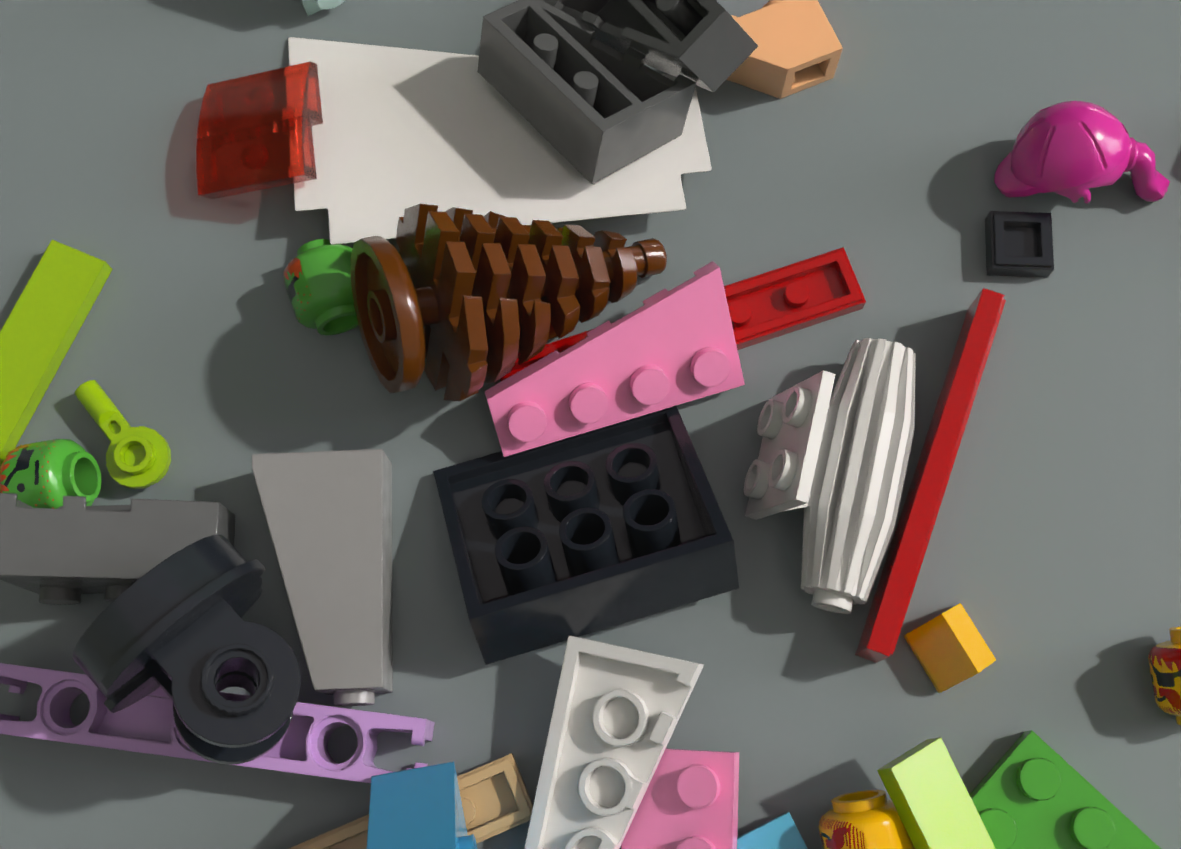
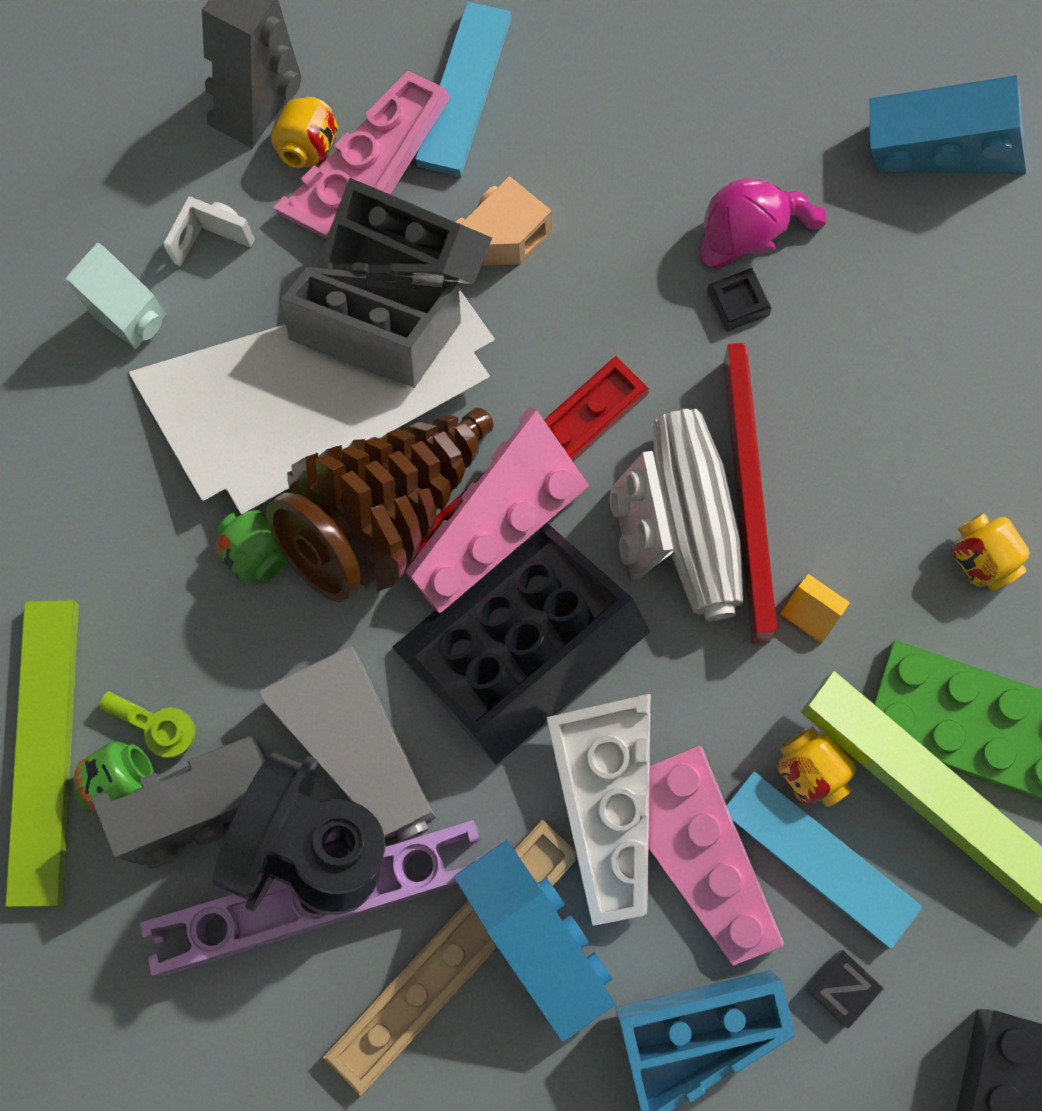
camera: 20 degrees left, 0 degrees up
(258, 131) = (145, 453): clear red slope -> none

